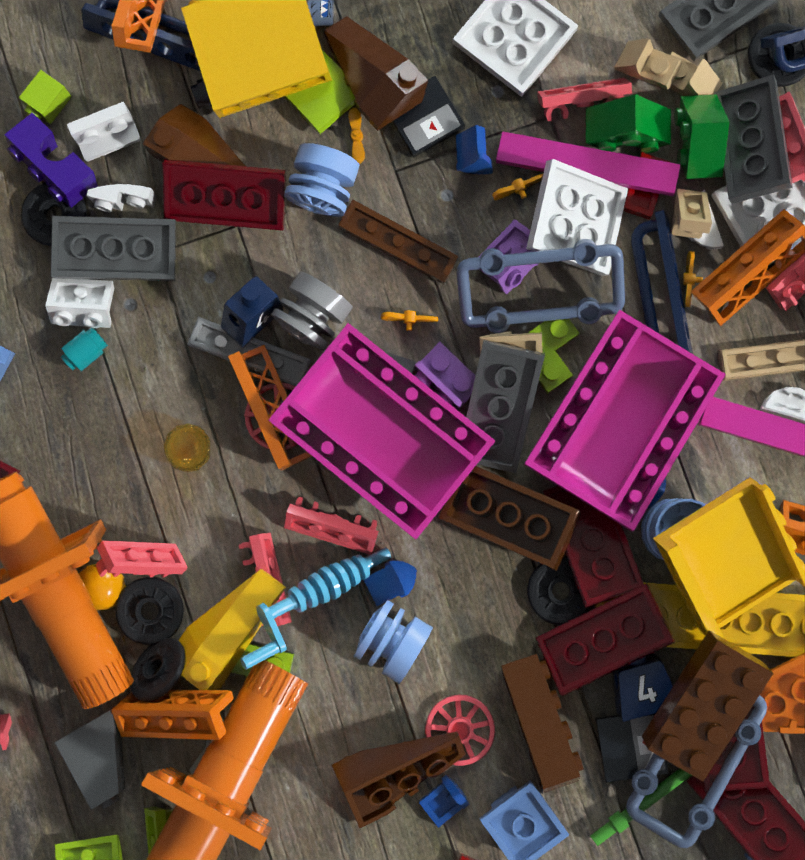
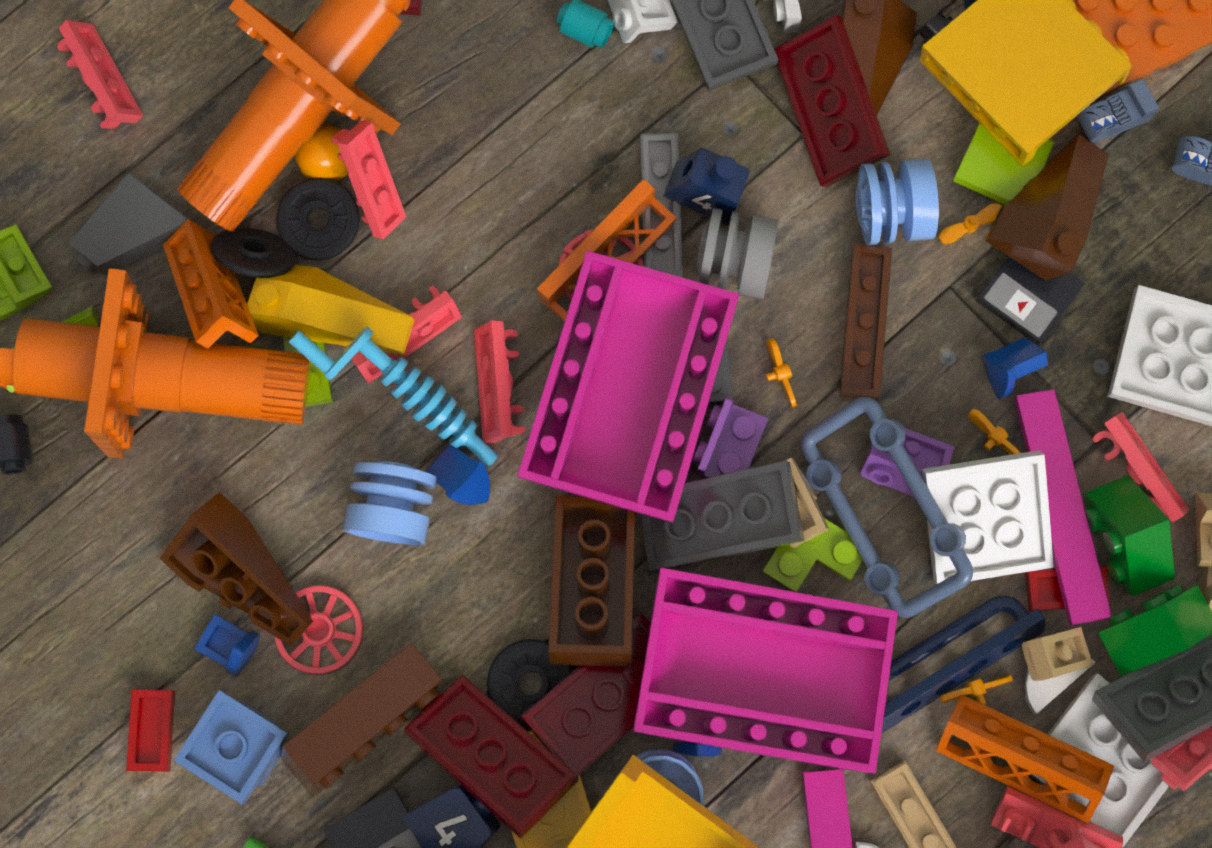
camera: 65 degrees right, 5 degrees down
(187, 447) = (520, 181): clear yellow hair -> none

